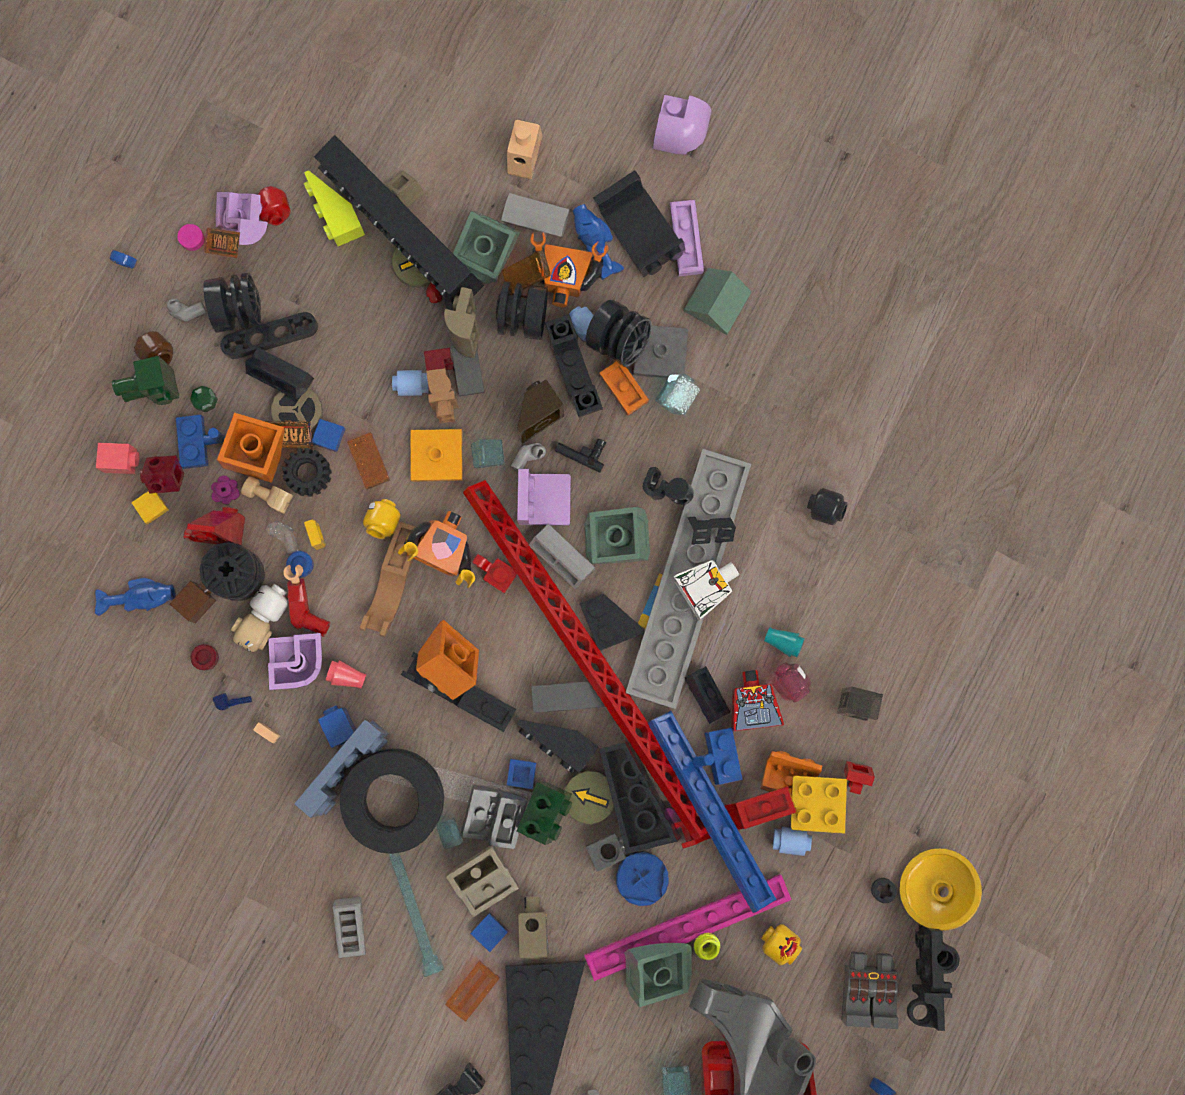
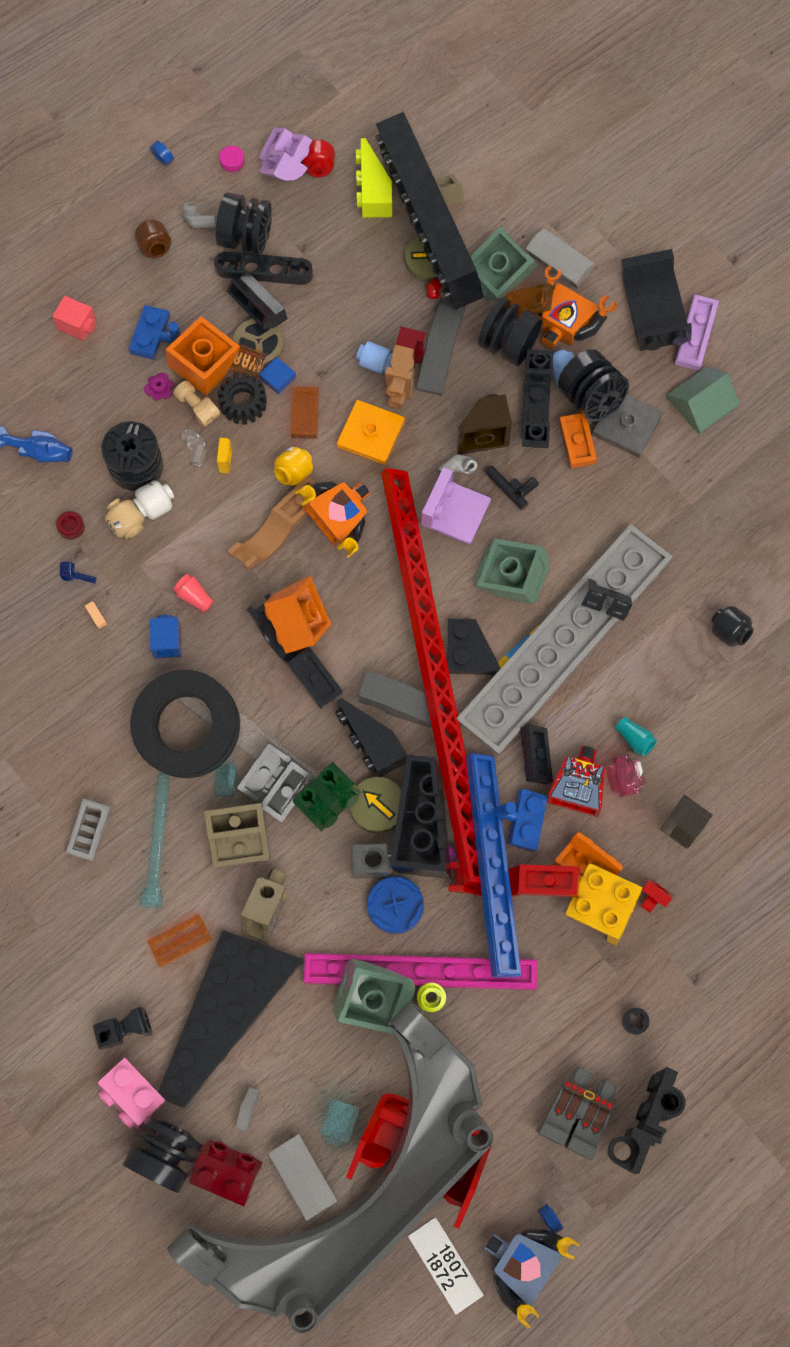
camera: 25 degrees right, 10 degrees down
(150, 506) = (84, 372): yellow tile -> none
(151, 379) = (137, 261): dark green brick -> none
(162, 474) = (109, 346): dark red brick -> none
(193, 601) = (84, 469): reddish brown brick -> none
(203, 399) = (177, 299): dark green tile -> none
(217, 527) = (130, 404): red wedge -> none
(222, 242) = (258, 169): clear orange tile -> none
(294, 661) = (152, 557): lavender brick -> none
(298, 604) = (180, 511): red arm -> none
(303, 559) = (198, 478): blue tile -> none
(319, 796) = (119, 683): sand blue piece -> none
(463, 323) = (448, 316): dark tan brick -> none
(487, 453) = (420, 449): clear light blue slope -> none
(489, 932) = (222, 891): blue tile -> none
(498, 574) = (380, 561): red plate -> none
(521, 774) = (320, 754): blue tile -> none
(523, 144) = (580, 188): light nougat torso -> none
(561, 556) = (450, 569): light grey piece -> none
(593, 230) = (606, 284): blue animal -> none
(676, 490) = (588, 549): black leg -> none
(678, 394) = (627, 465): clear light blue brick -> none
(681, 124) = (734, 230): lavender brick -> none
(705, 586) = (578, 647): torso -> none
(781, 944) = (507, 1026): yellow head -> none
(791, 841) = (561, 930): light blue brick -> none
(926, 878) = (694, 1025): yellow dish -> none

